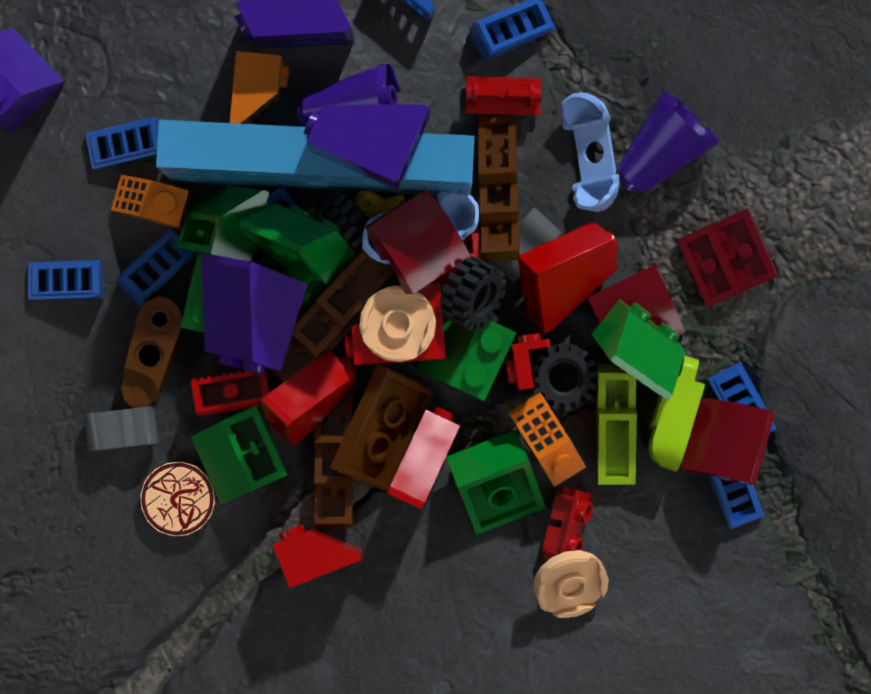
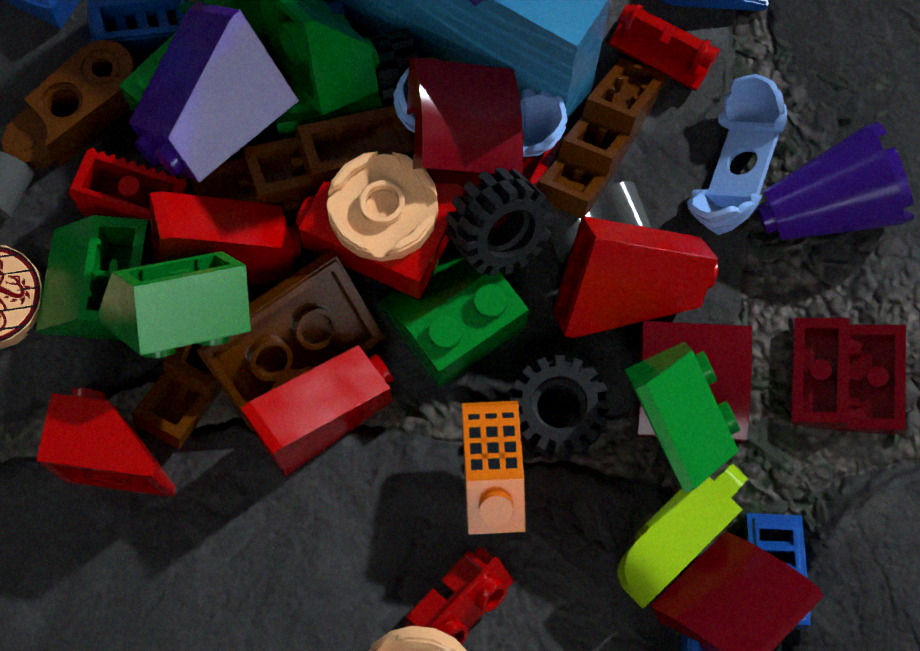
camera: 25 degrees right, 15 degrees down
(318, 456) = (177, 304): none -> green slope
(496, 482) = (394, 493): green slope -> none
(519, 368) = (529, 335): red bracket -> none
(616, 426) = (593, 506): lime slope -> none

